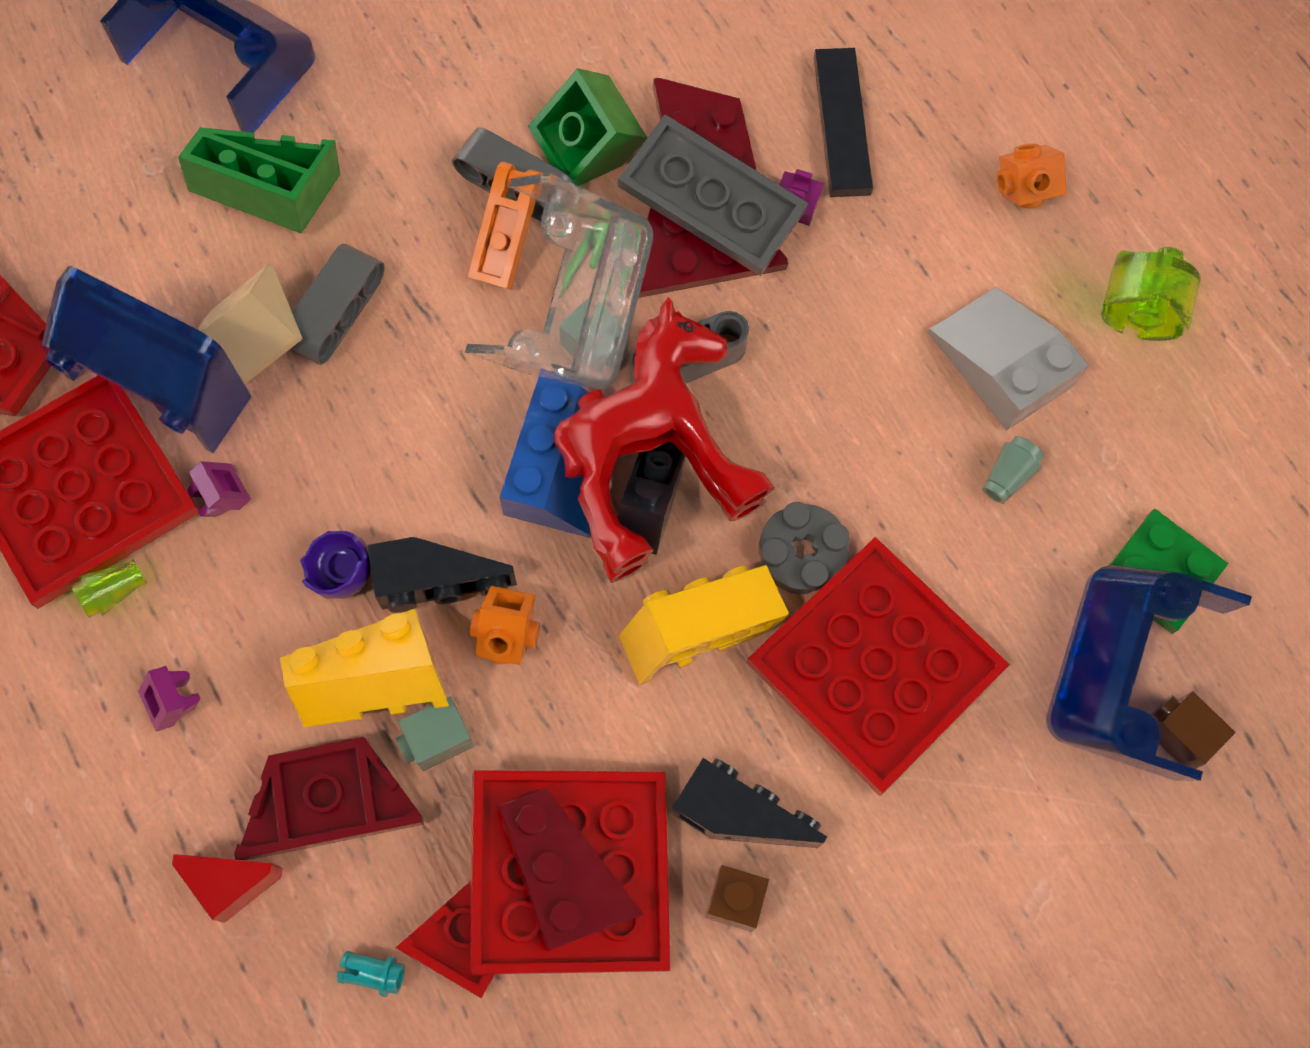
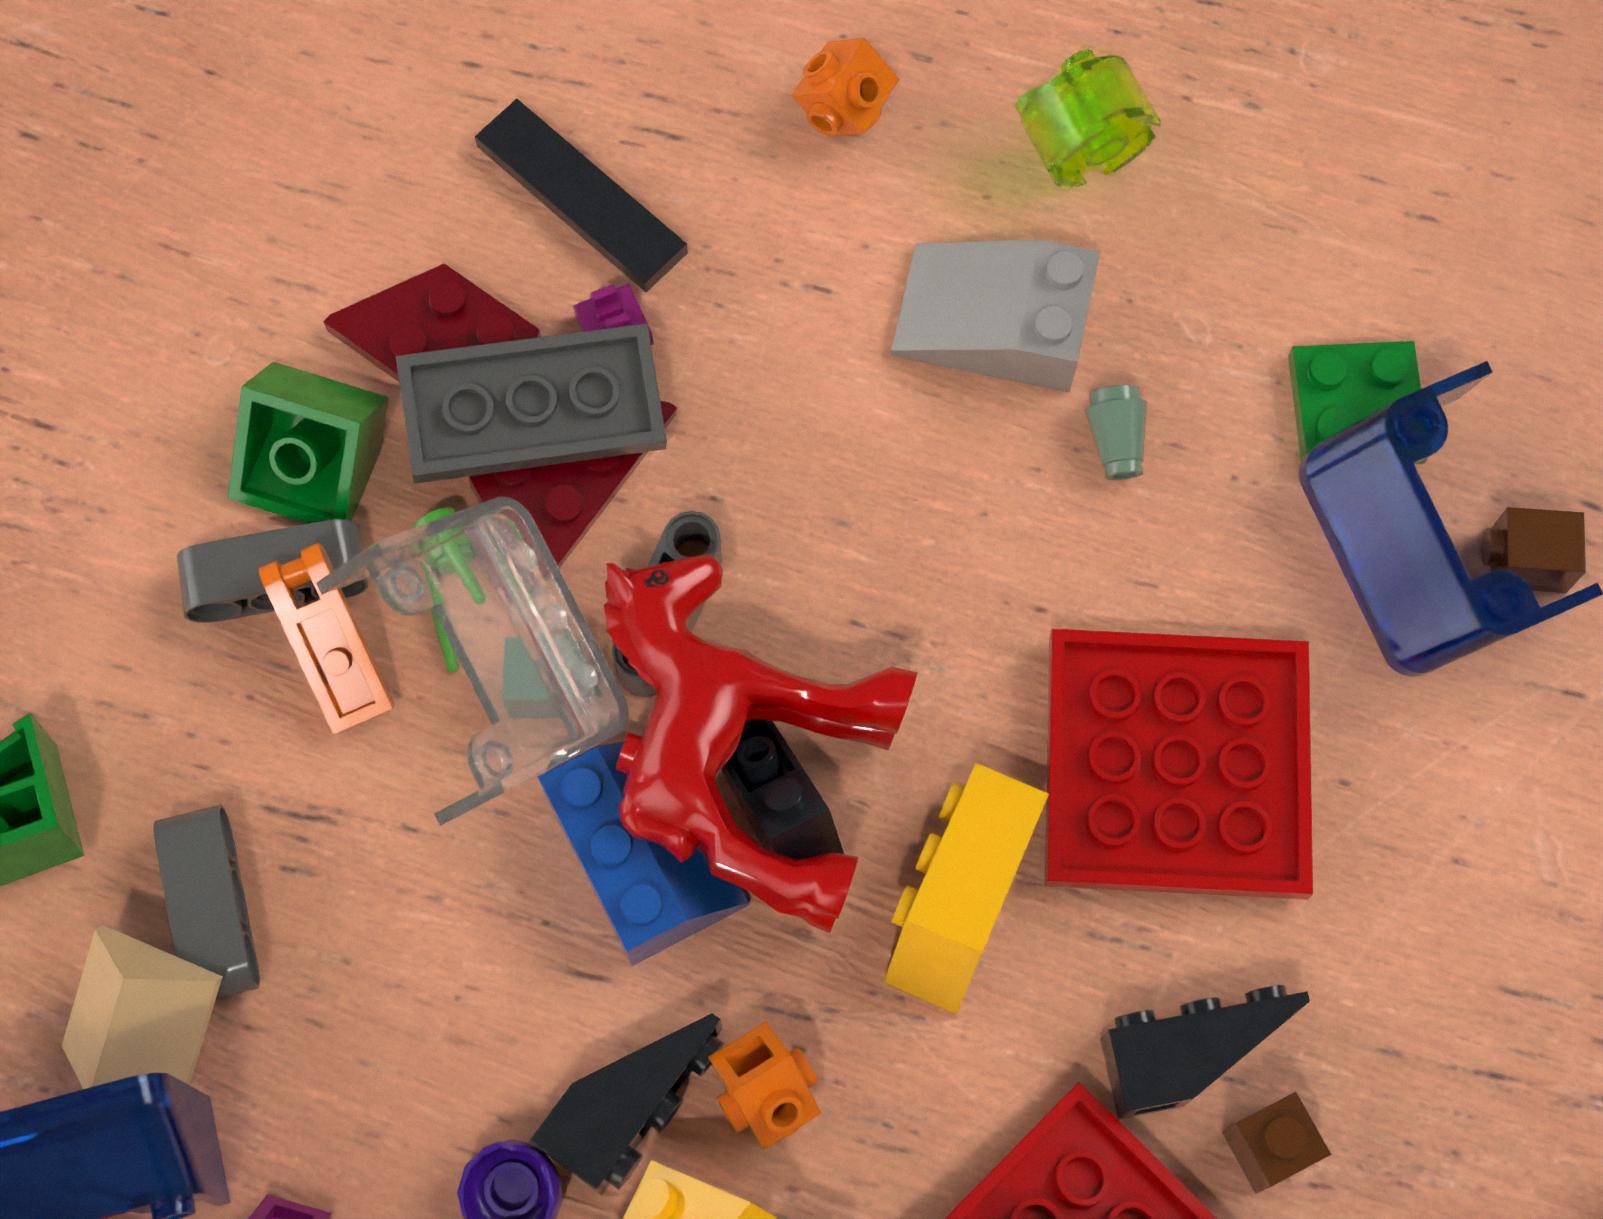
camera: 40 degrees left, 0 degrees up
(798, 523) = (1007, 677): dark grey plate -> none

